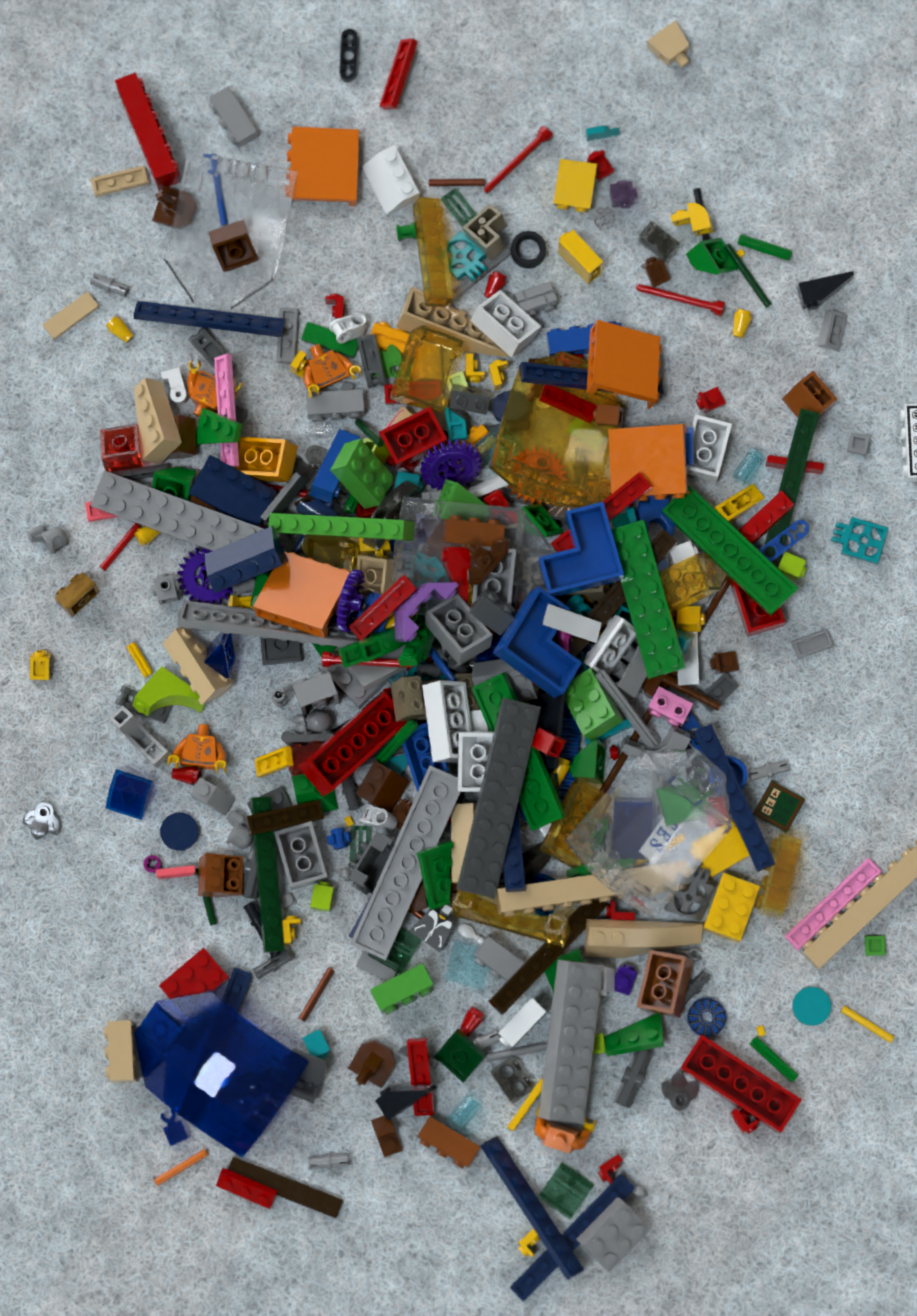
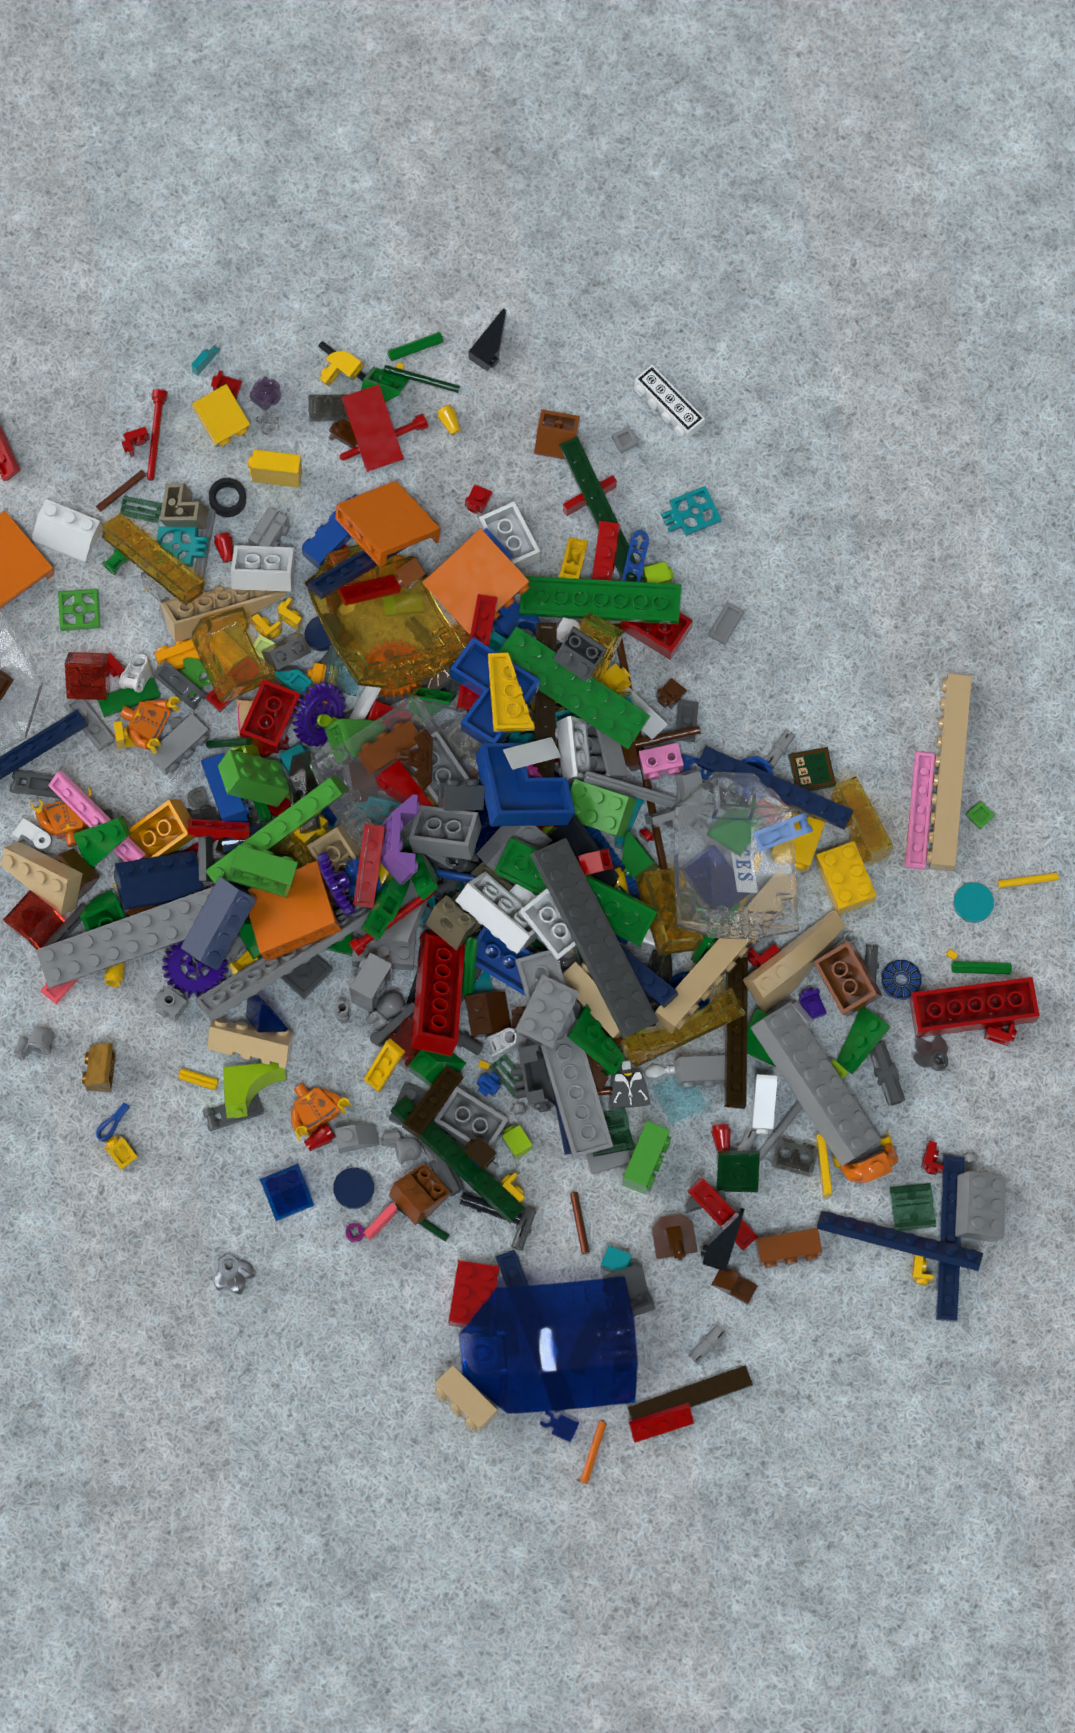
camera: 45 degrees left, 5 degrees down
(59, 639) = (116, 1118): none -> blue piece
(120, 546) = (101, 1018): red bar -> none
(139, 737) = (255, 1140): light grey arch -> none
(283, 884) = (480, 1153): none -> dark brown brick
(302, 490) = (218, 829): none -> red plate
(303, 547) = (262, 870): none -> bright green brick
(311, 300) = (87, 676): none -> clear red brick
(349, 227) = (78, 601): none -> bright green piece
(415, 276) = (155, 588): none -> clear slope
(417, 822) = (546, 1012): none -> light grey brick
(450, 474) = (325, 720): none -> lime piece
(463, 1113) = (779, 1215): clear light blue piece -> none
(501, 151) = (136, 437): none -> red bracket
(585, 569) = (507, 699): none -> yellow wing
(669, 580) = (580, 654): none -> dark grey slope
(670, 45) = (200, 247): tan torso -> none
(677, 283) = (372, 428): none -> red tile
(694, 879) = (802, 873): dark grey piece -> none
(706, 835) = (781, 832): none -> medium blue plate
(748, 467) = (555, 526): clear light blue piece -> none
(832, 330) = (525, 368): light grey slope -> none

